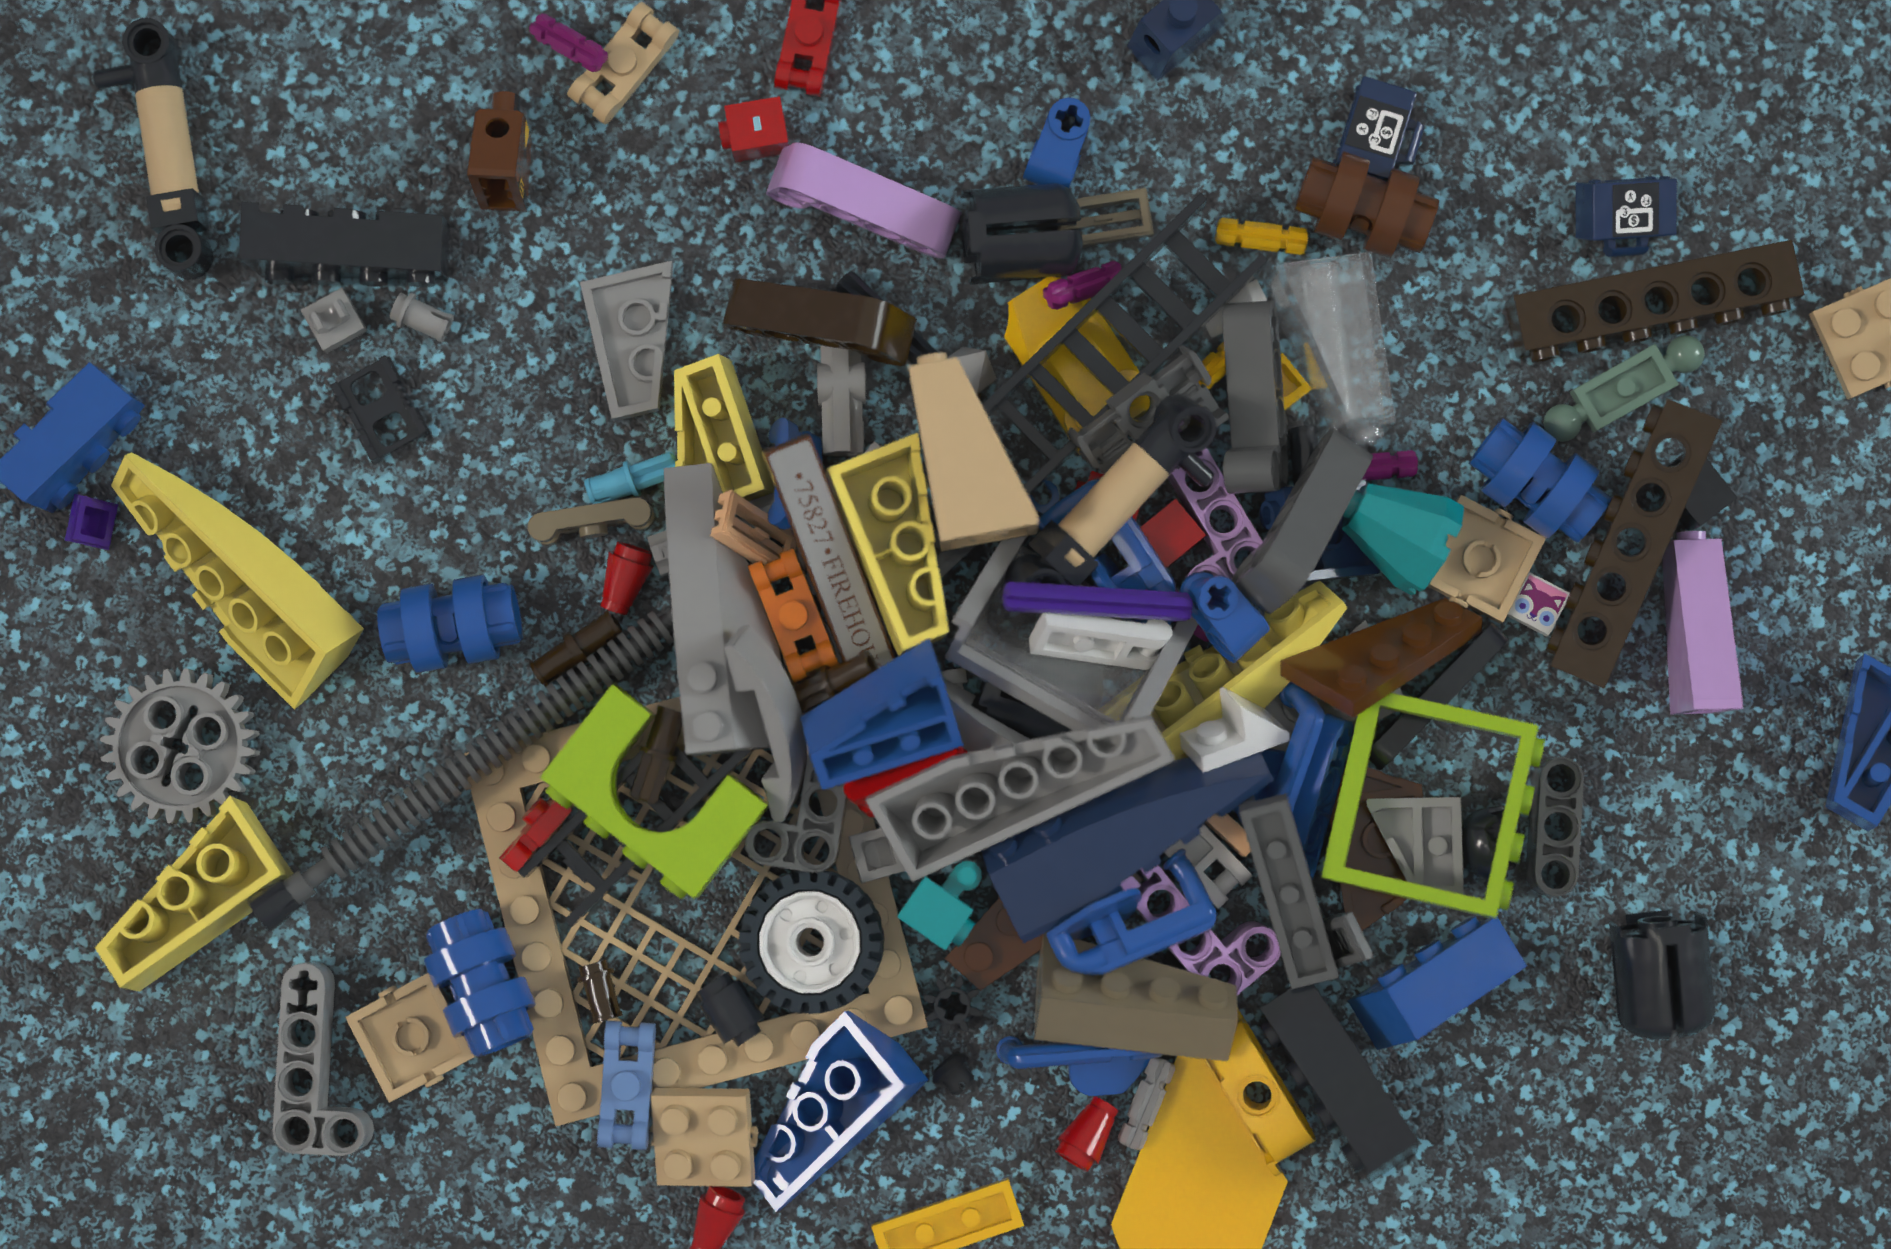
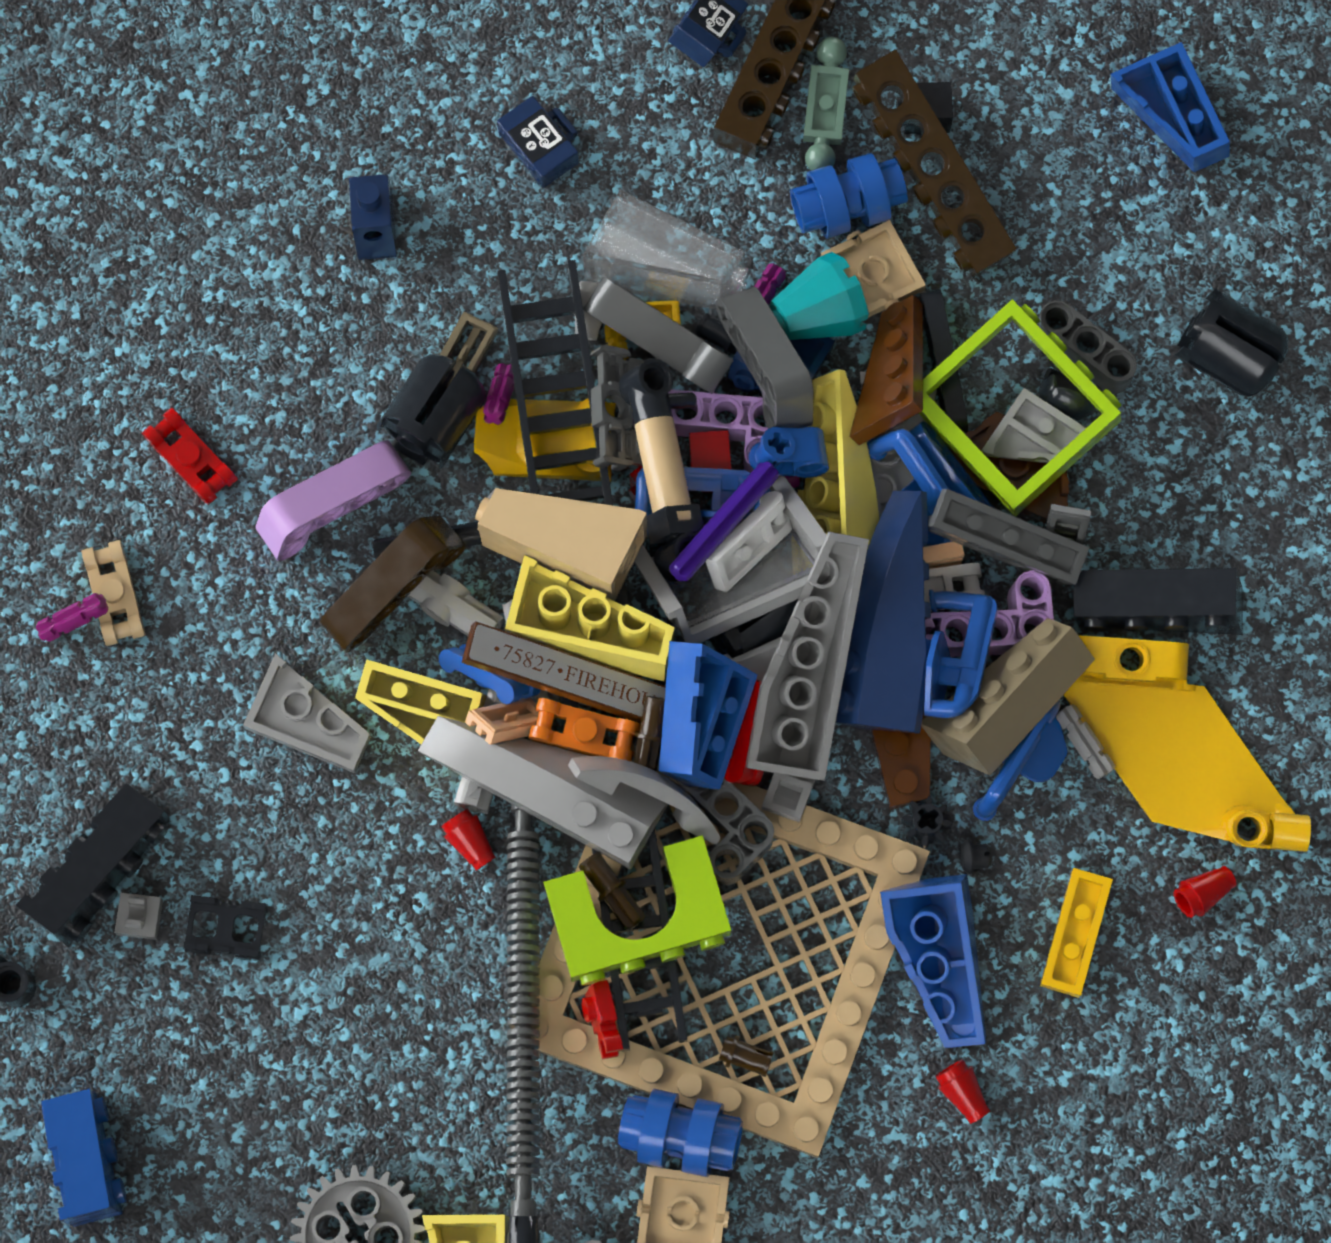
camera: 55 degrees left, 10 degrees down
(91, 522) = (151, 1186): dark purple slope -> none
(263, 598) = (292, 1102): light yellow wedge -> none
(421, 316) = (183, 852): light grey pin -> none
(429, 627) = (421, 962): blue piece -> none
(500, 155) = (115, 715): reddish brown torso -> none
(576, 648) = (494, 907): dark brown pin -> none
(590, 520) = (413, 833): dark tan plate -> none
(626, 1085) = (825, 1081): medium blue plate -> none
(628, 479) = (404, 788): medium azure axle -> none
(703, 1137) = (898, 1055): tan plate -> none
(730, 1009) = (823, 972): black brick -> none
(754, 129) = (228, 535): red brick -> none
(774, 950) = (823, 850): wheel -> none
(938, 910) = (854, 780): teal brick -> none
(1056, 151) = (396, 350): blue piece -> none
(1087, 1134) = (1079, 794): red cone -> none
(1238, 734) = (878, 501): white slope -> none
(1261, 236) = (552, 261): yellow axle -> none
(1385, 211) = (572, 184): reddish brown piece -> none
(1437, 983) = (1138, 494): blue wedge -> none
(1538, 604) = (930, 256): tile -> none
(1699, 627) = (1022, 166): lavender slope -> none

